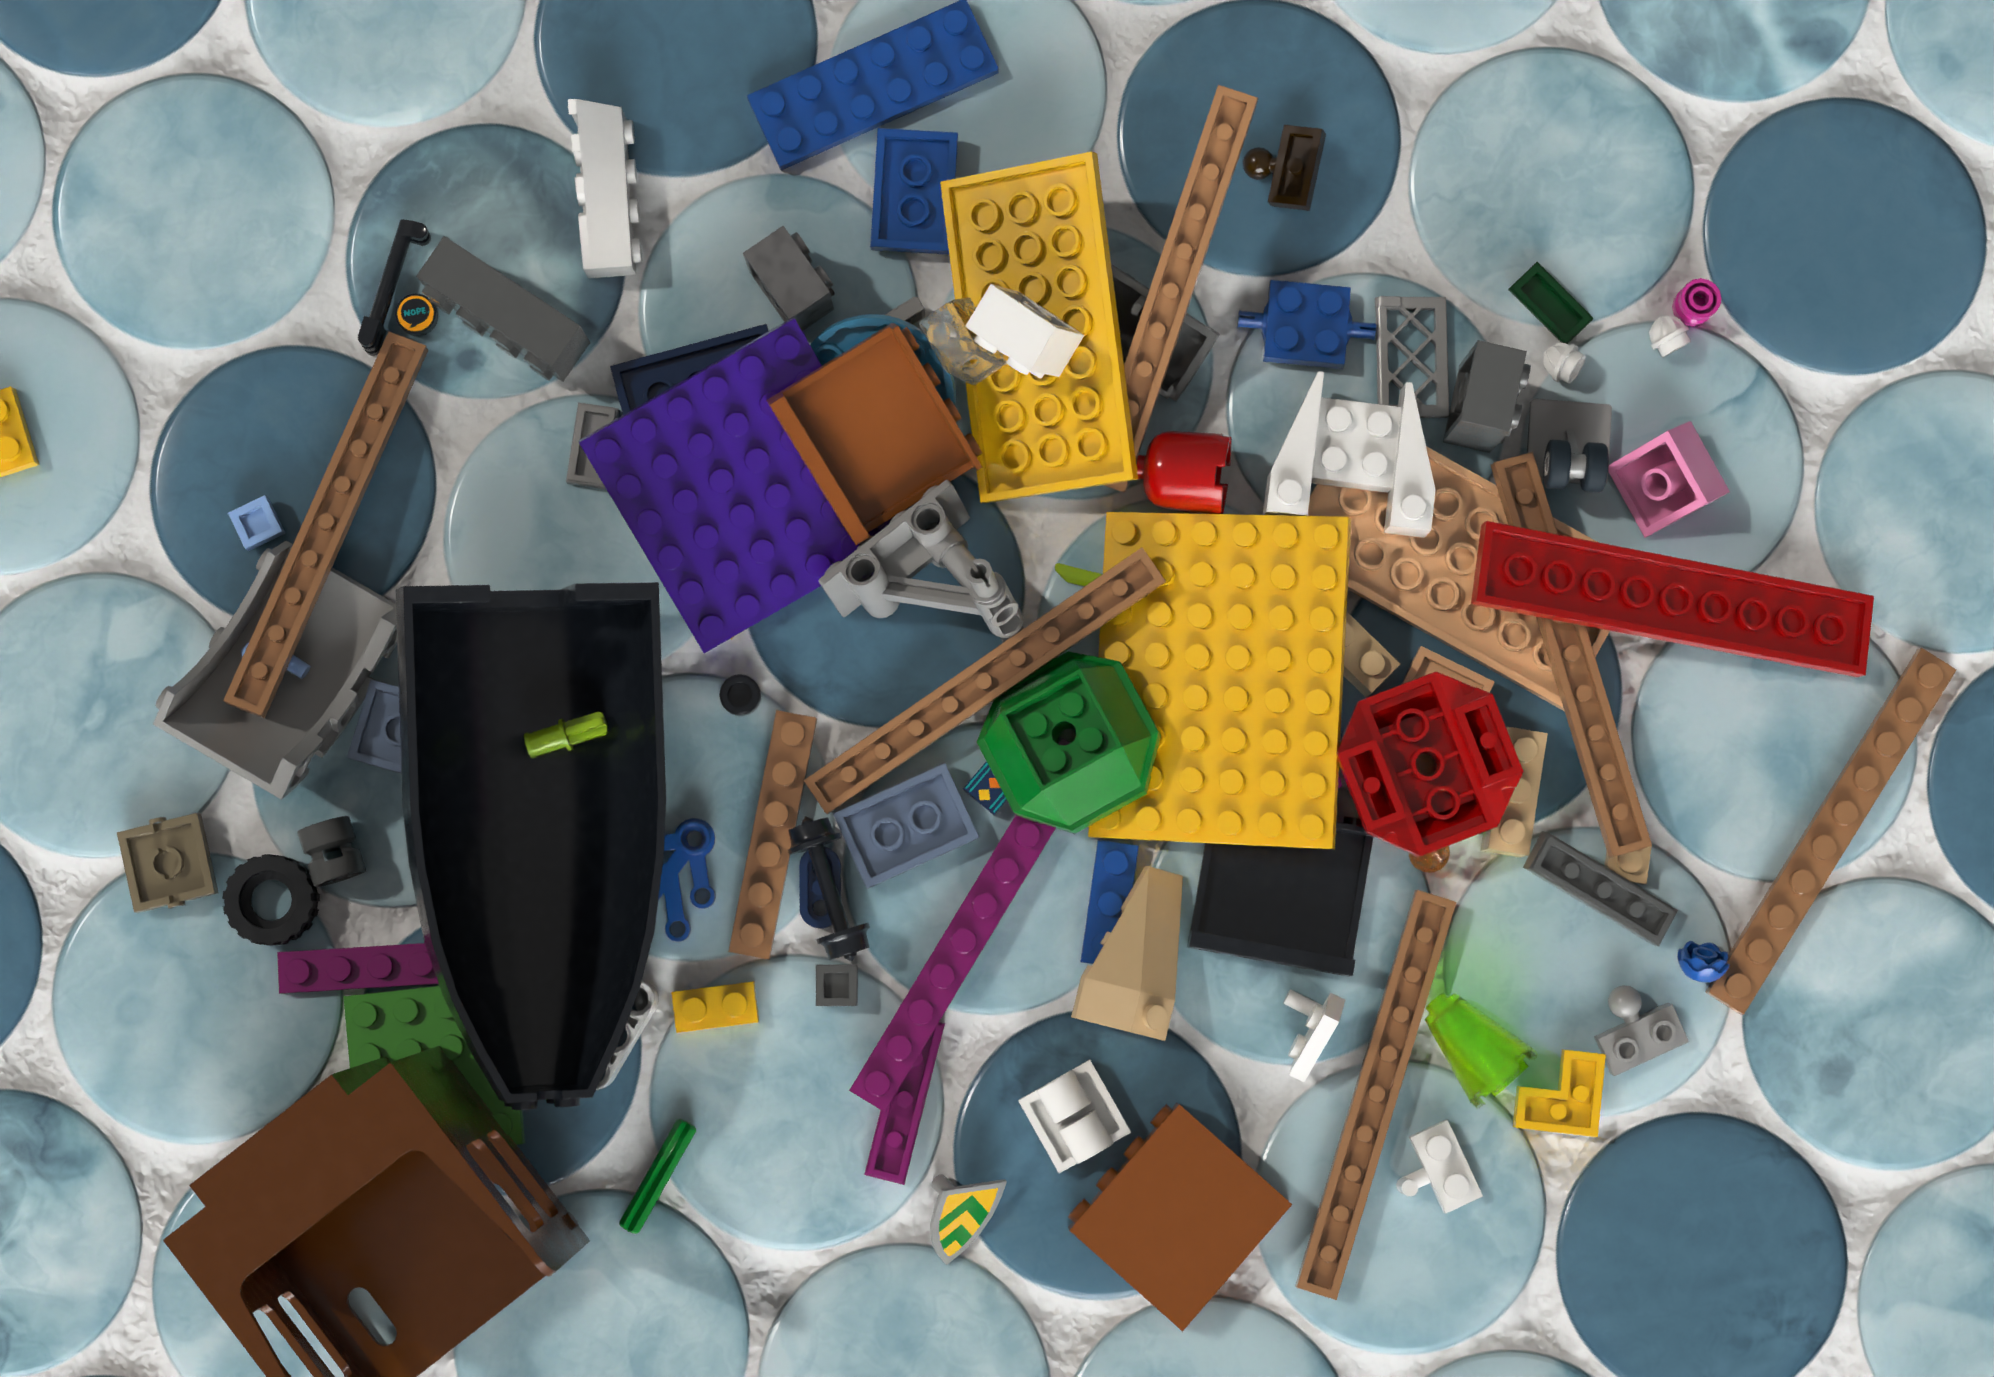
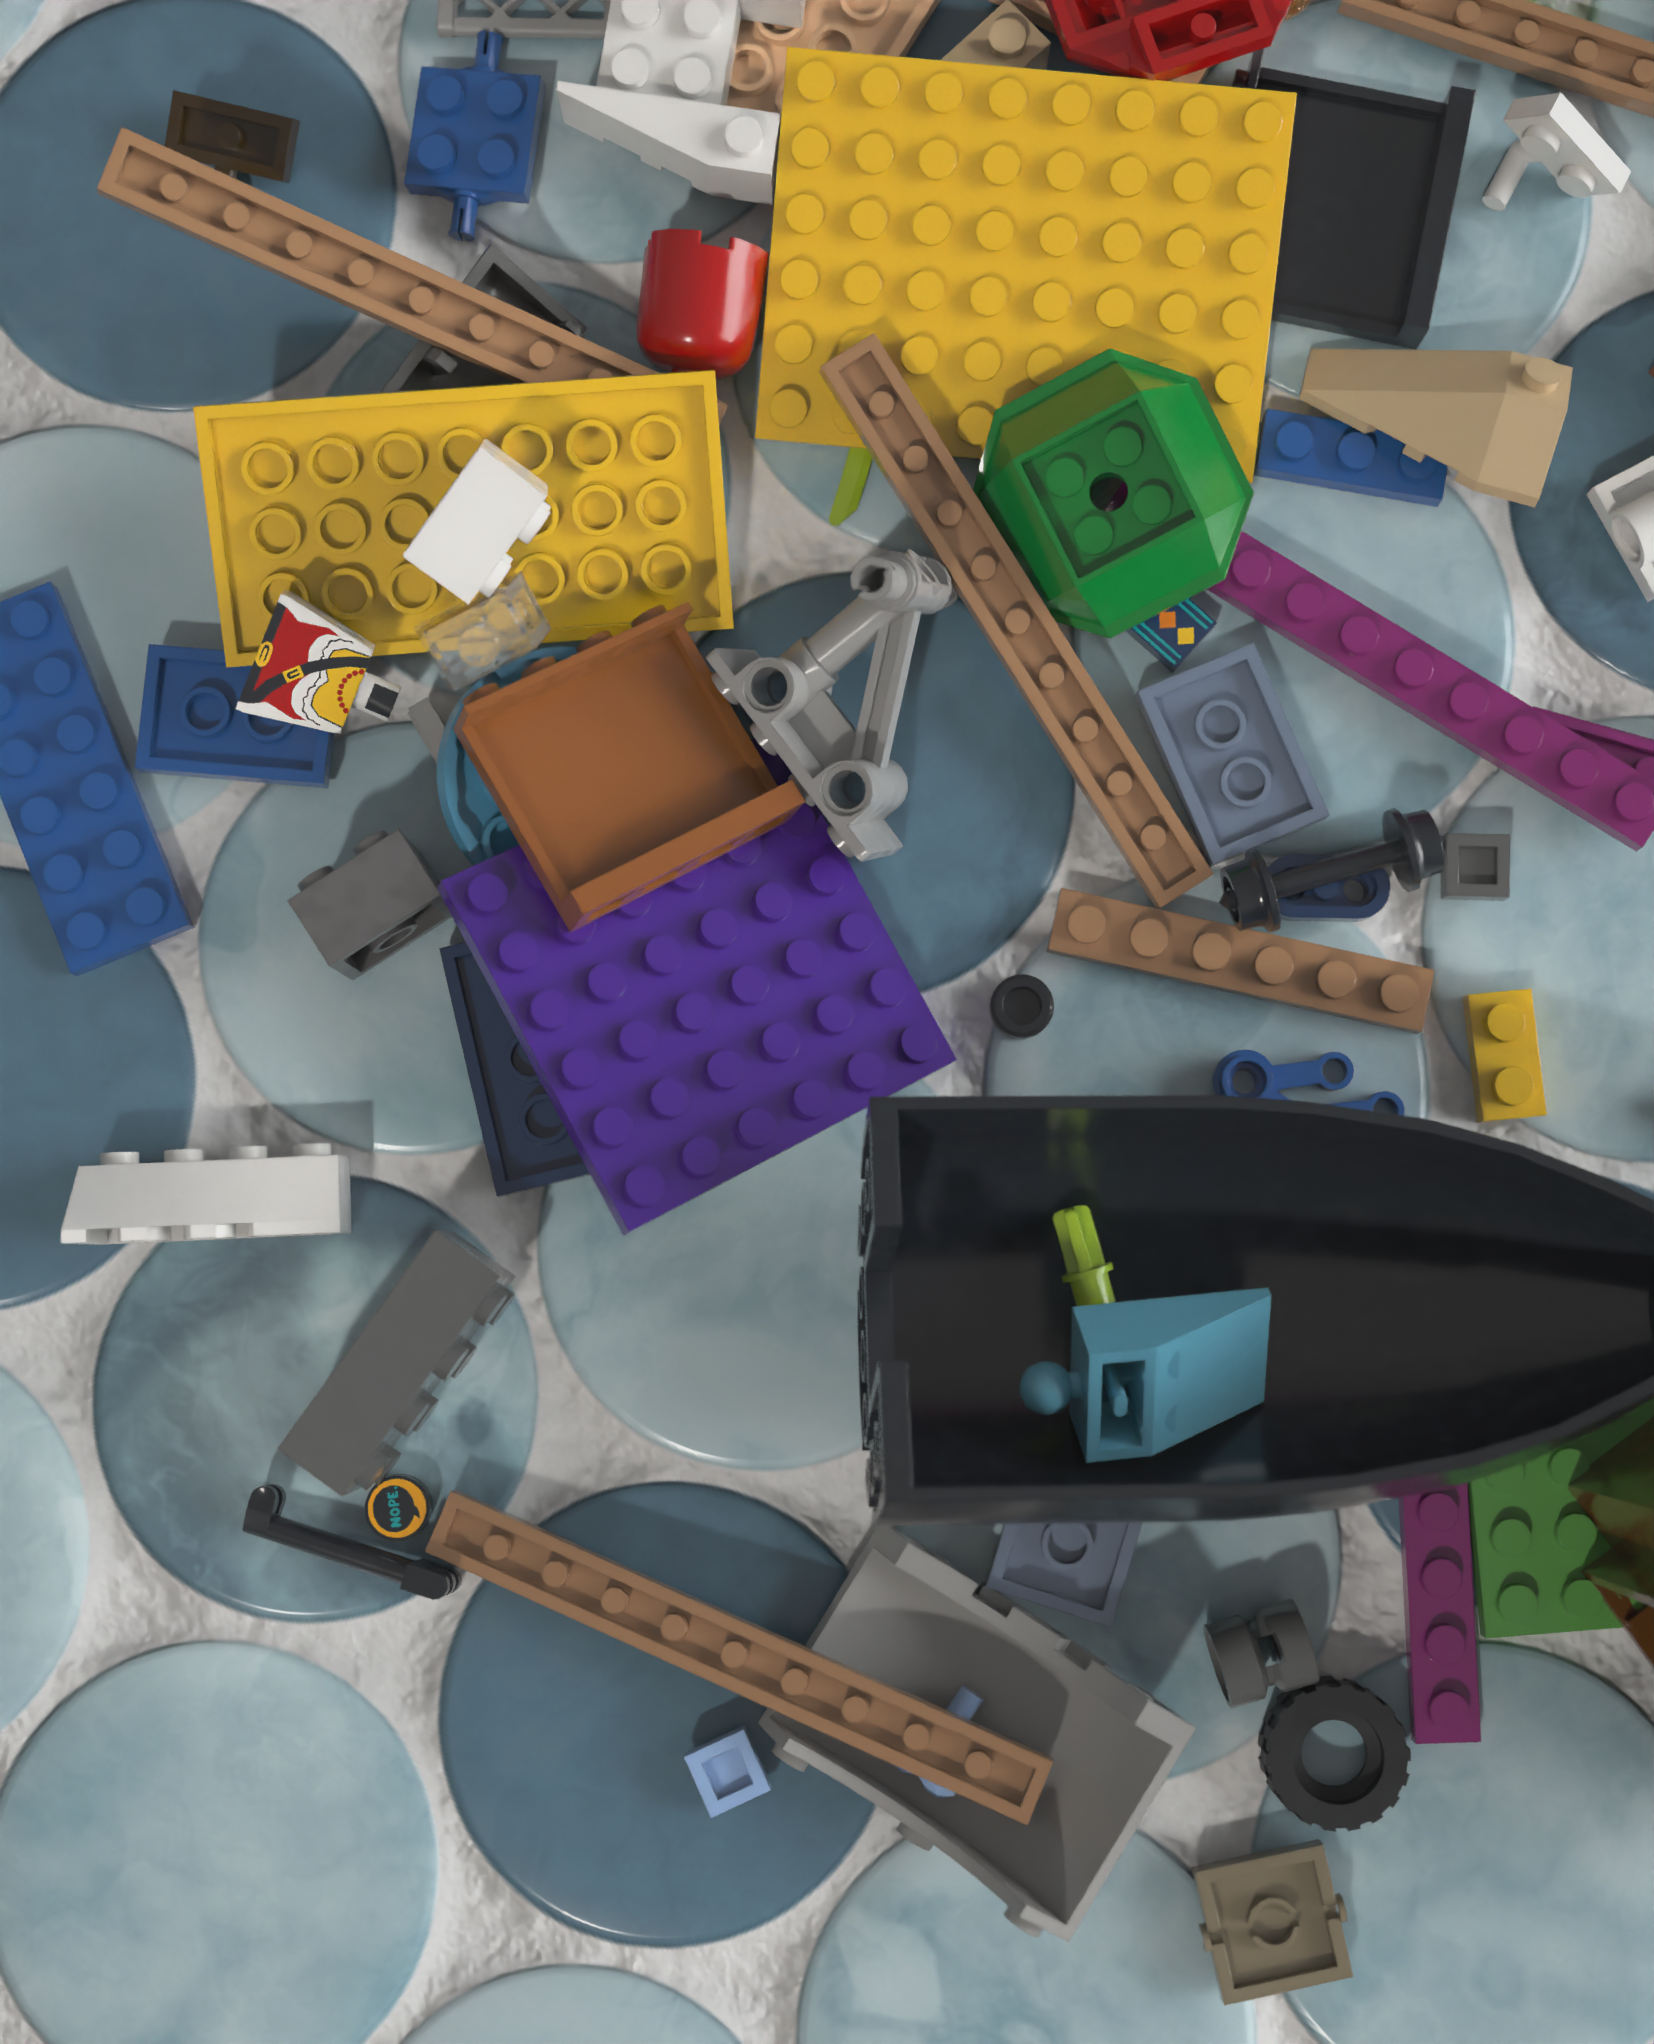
camera: 85 degrees left, 0 degrees up
(501, 776) = (1162, 1367): none -> medium azure slope
(588, 420) = (590, 1230): light grey tile -> none
(935, 236) = (313, 671): none -> torso

